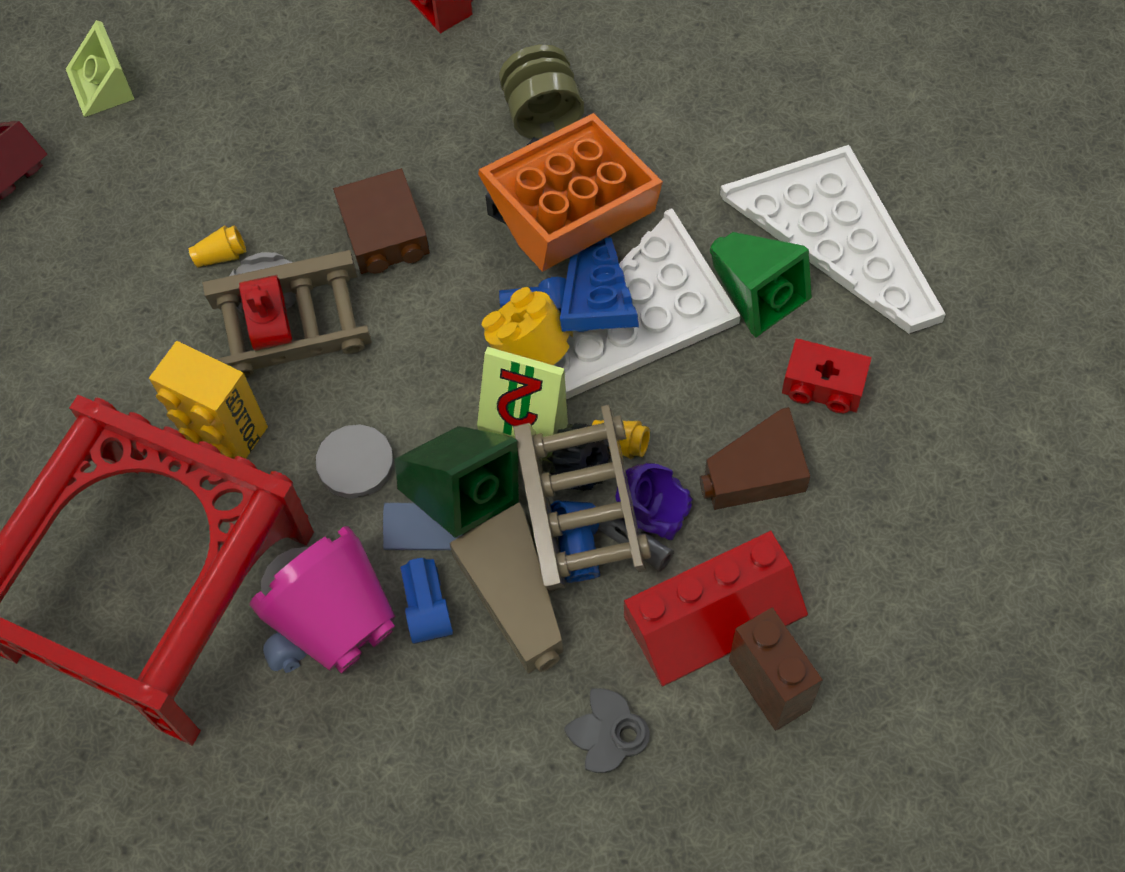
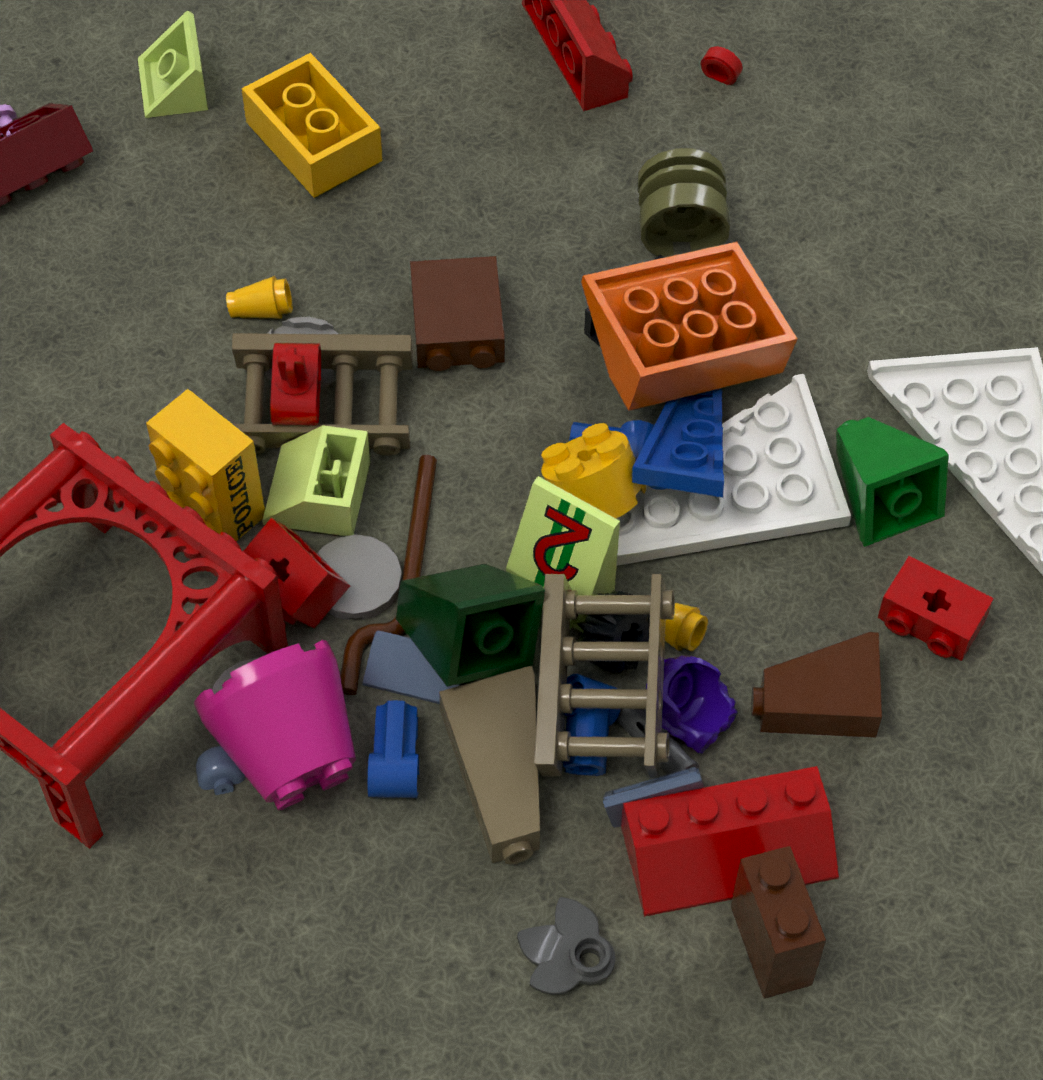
camera: 10 degrees right, 5 degrees down
(223, 92) = (312, 124): none -> yellow brick
(305, 389) = (320, 481): none -> yellowish green slope
(314, 474) = (304, 579): none -> red brick
(399, 445) = (412, 569): none -> reddish brown piece
(642, 581) = (668, 784): none -> sand blue slope

